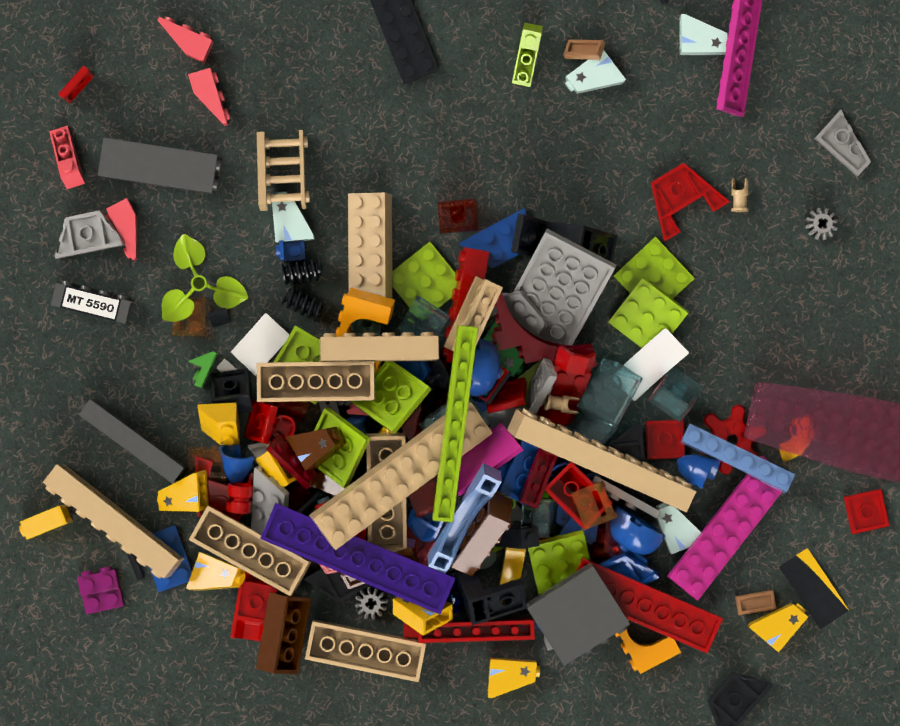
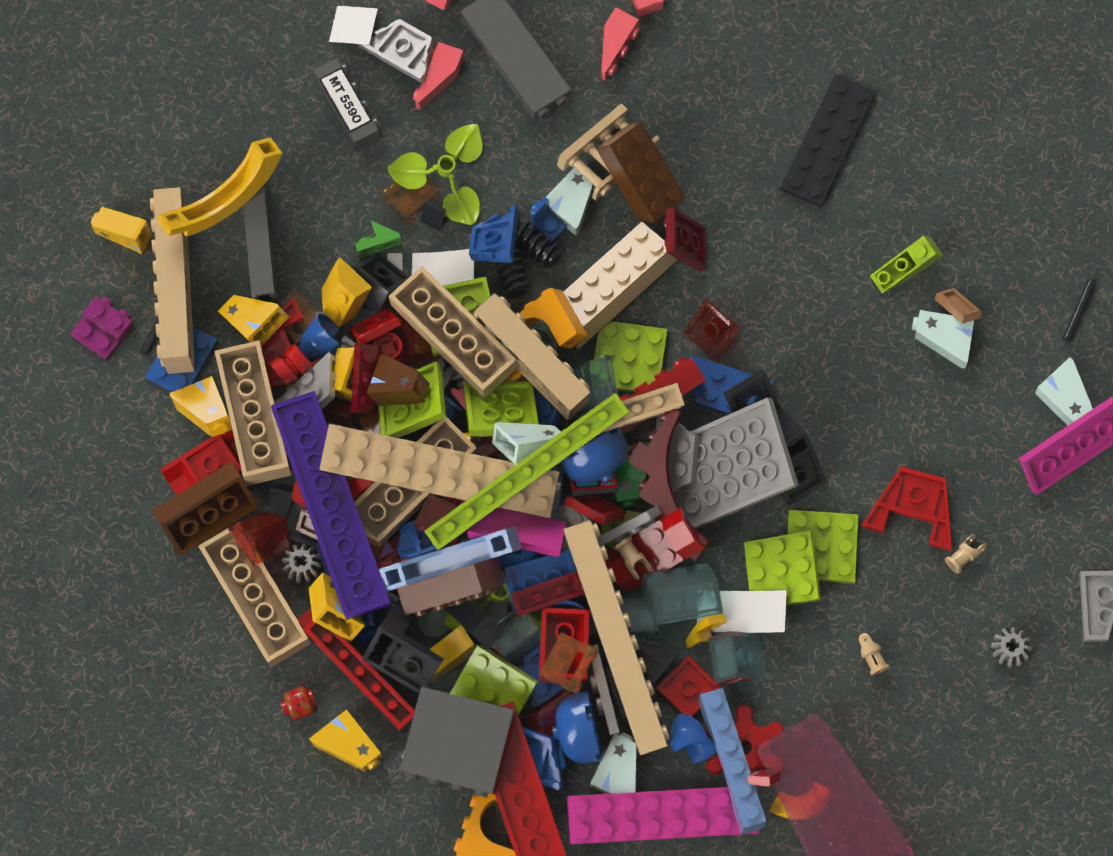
camera: 55 degrees right, 15 degrees down
(40, 249) = (353, 25): none -> white sticker
(94, 420) = (230, 196): none -> yellow arch
(272, 294) = (495, 238): none -> blue wing
(317, 165) = (640, 173): none -> reddish brown brick
(334, 615) = (261, 536): none -> clear red slope
(386, 178) = (685, 239): none -> dark red plate
(430, 404) = (520, 440): none -> light aqua slope
(457, 682) = (298, 703): none -> red head
(641, 399) = (703, 629): none -> yellow slope
(745, 310) = (870, 650): none -> tan piece
(769, 451) = (764, 777): none -> tile

